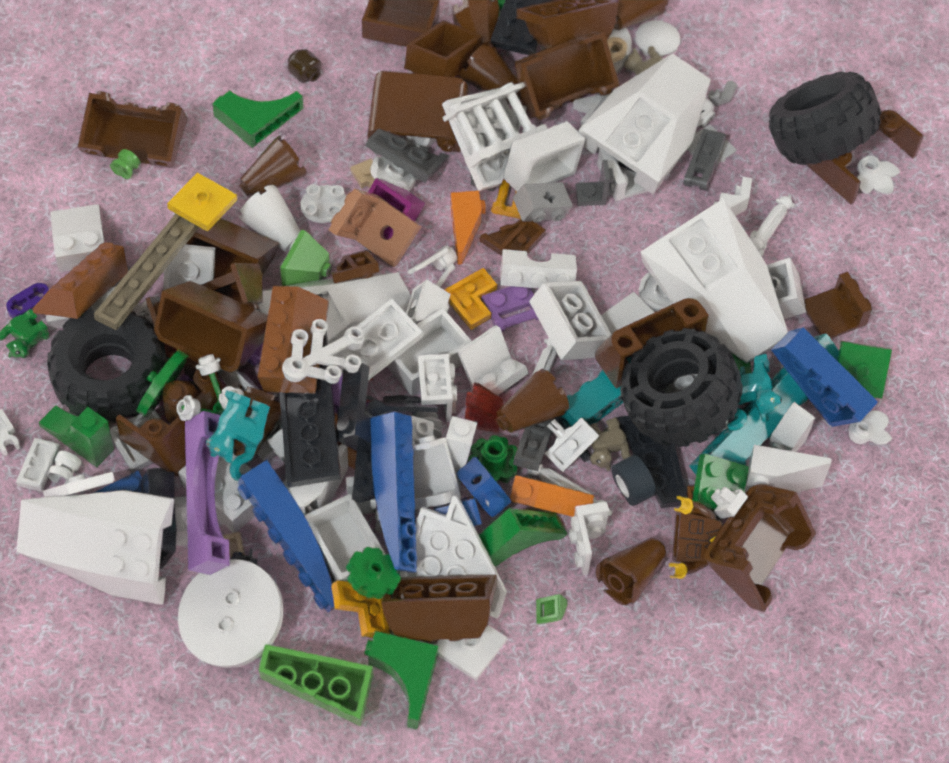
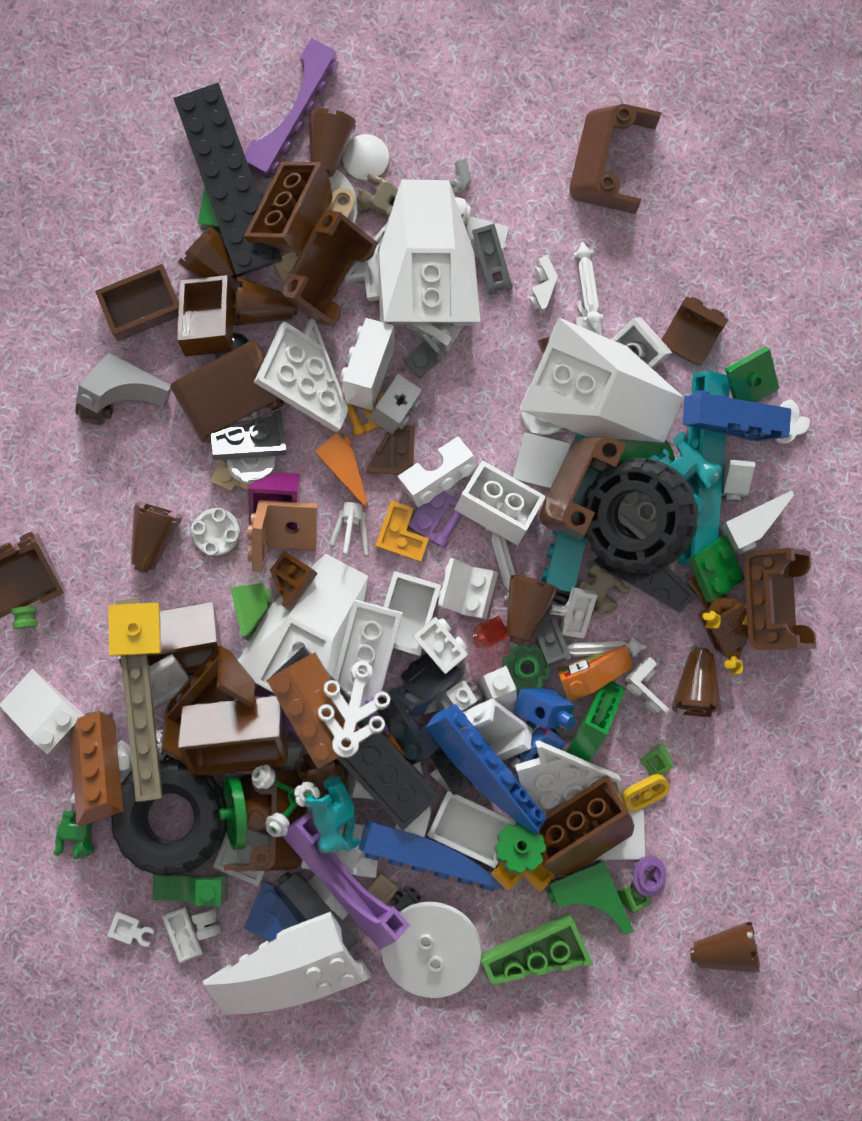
camera: 35 degrees left, 25 degrees up
(25, 299) = (46, 799): dark purple beam -> none
(79, 484) = (236, 938): white plate -> none
(255, 119) = (96, 494): green arch -> none
(271, 217) = (191, 583): white cone -> none
(339, 57) = (120, 381): none -> light grey arch
(426, 300) = (374, 574): white slope -> none
(439, 703) = (633, 899): none -> bright green slope
(474, 680) = (656, 871): none -> medium lavender gear
(496, 146) = (332, 364): white fence -> none
(519, 625) = (645, 792): none -> yellow plate
(633, 480) = (645, 609): black wheel -> none
(728, 502) = (738, 584): white tile -> none
(824, 118) = (558, 144): black tyre -> none
(877, 178) = (642, 171): white plate -> none

